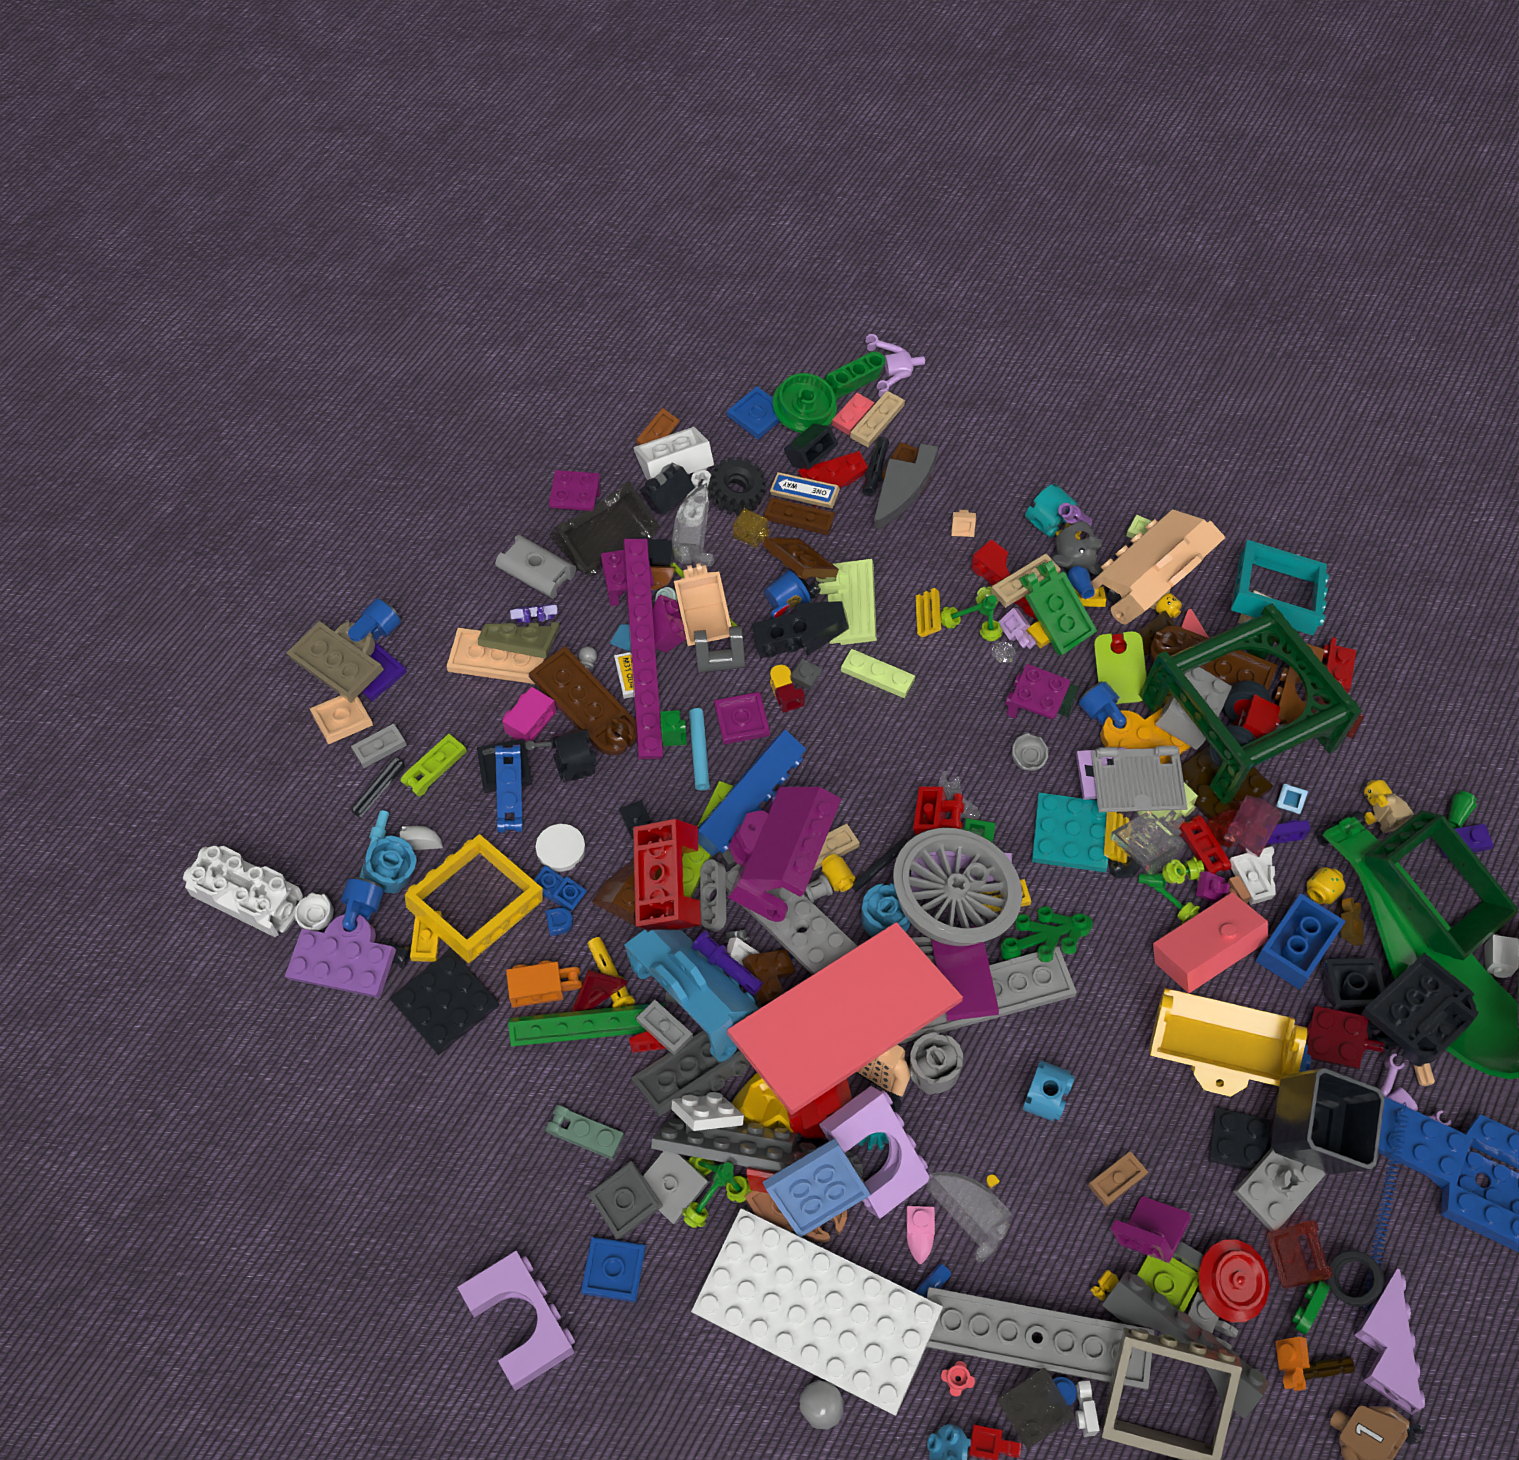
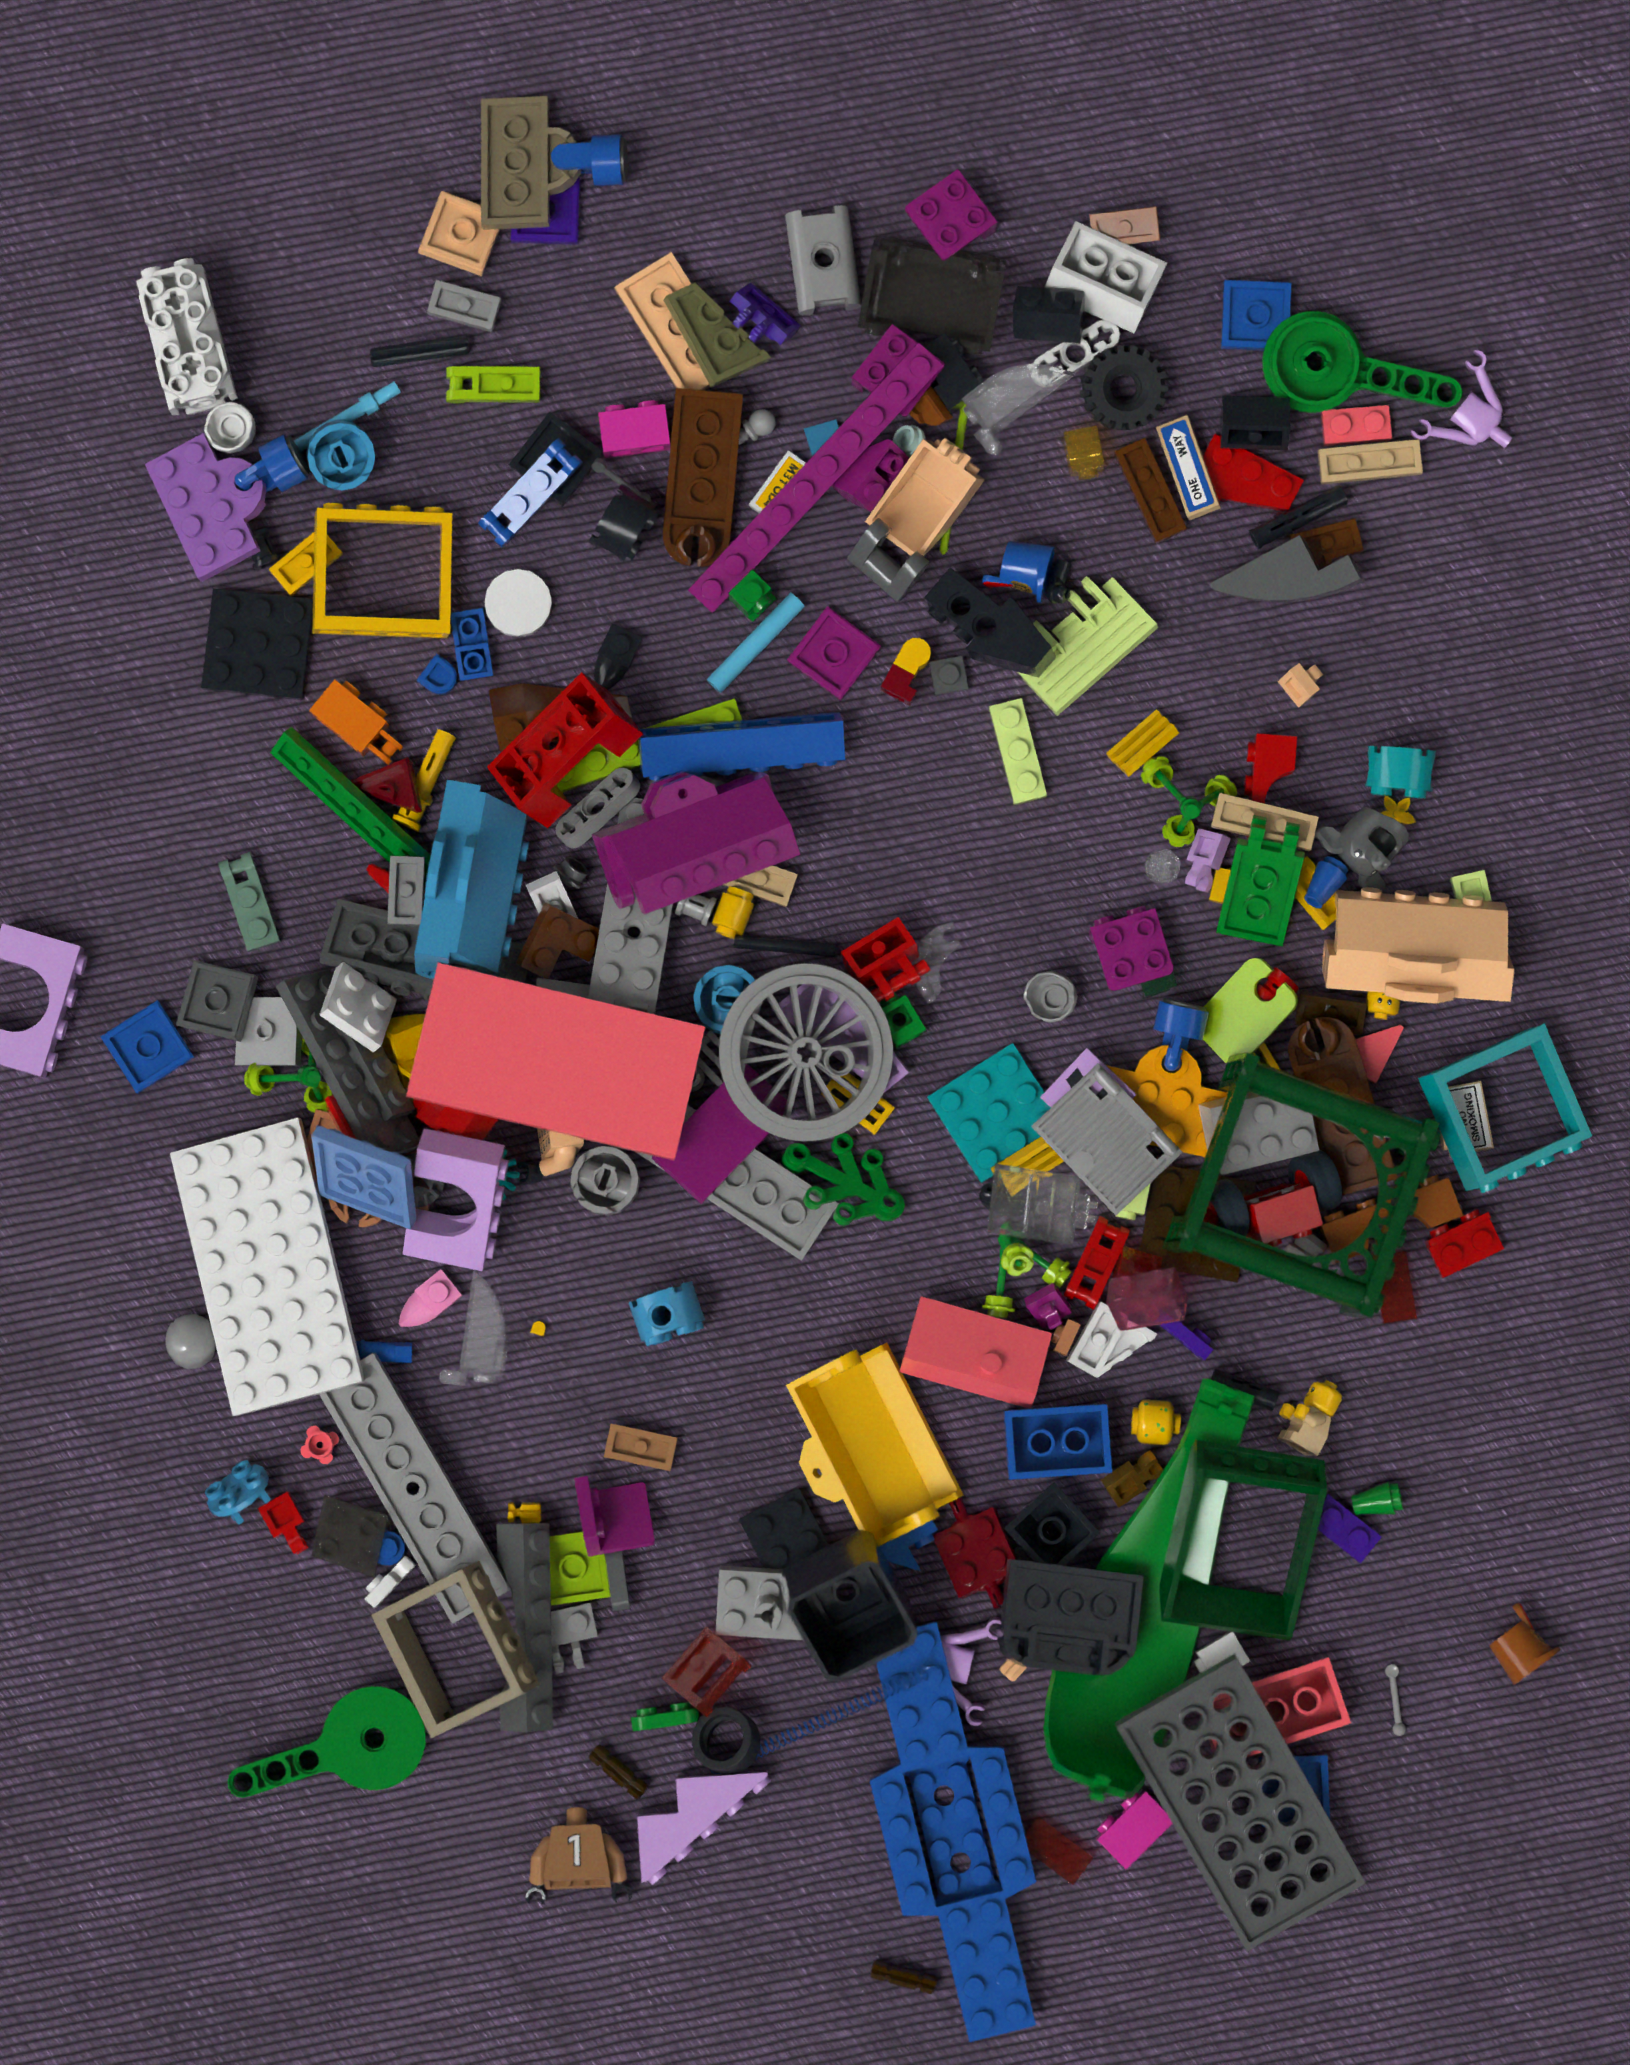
camera: 50 degrees right, 25 degrees up
(421, 837) = (403, 449): white brick -> none
(718, 956) = (521, 880): dark purple pin -> none
(800, 557) = (1081, 547): reddish brown plate -> none
(1074, 511) = (1400, 806): medium lavender pin -> none
(1233, 1280) = (628, 1628): red piece -> none
(1291, 798) = (1242, 1311): slope -> none
(1292, 1359) = (597, 1737): orange plate -> none

